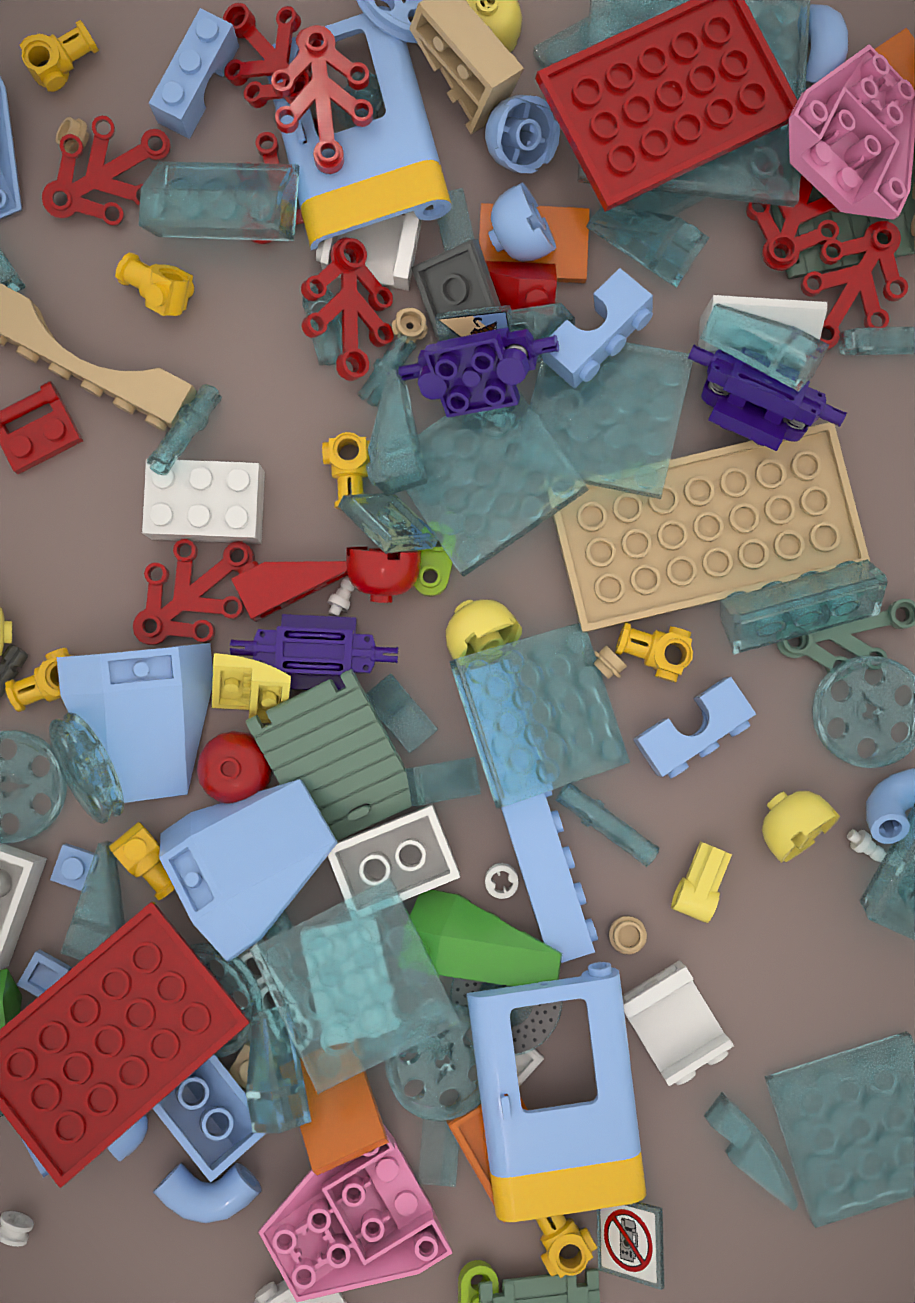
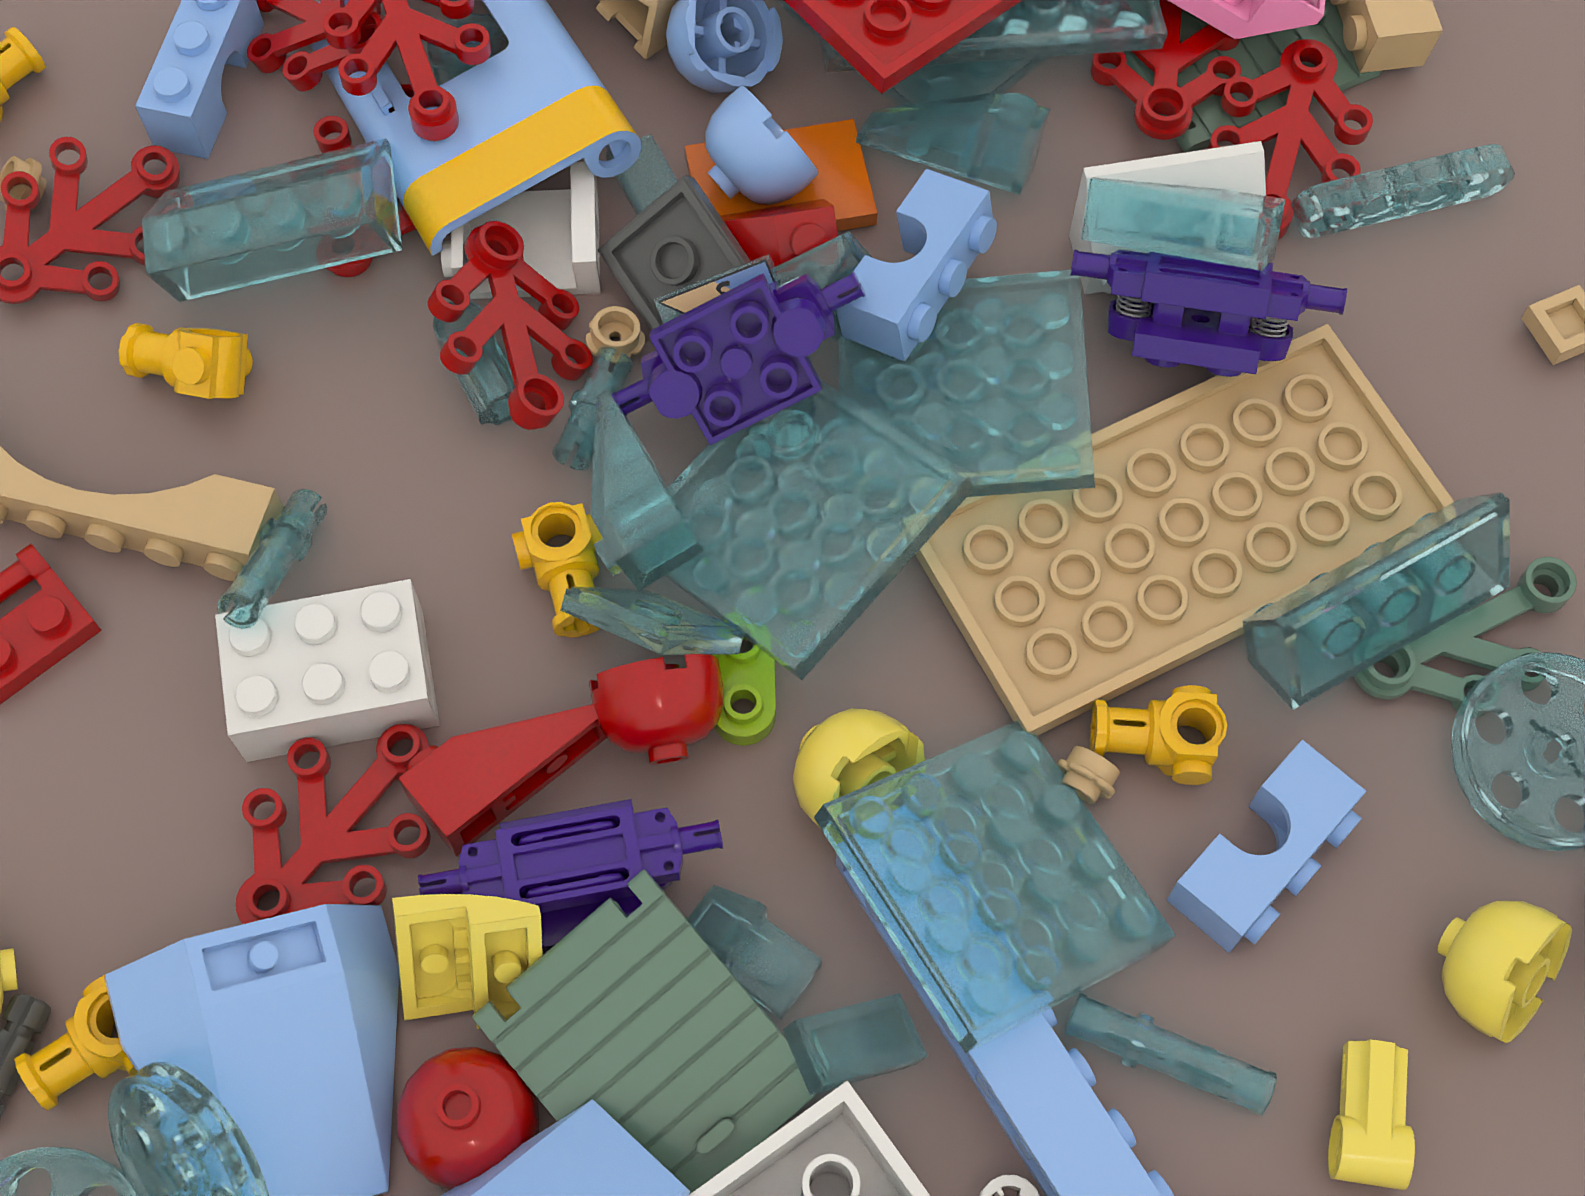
camera: 10 degrees left, 20 degrees down
(340, 600) = (596, 782): white piece -> none

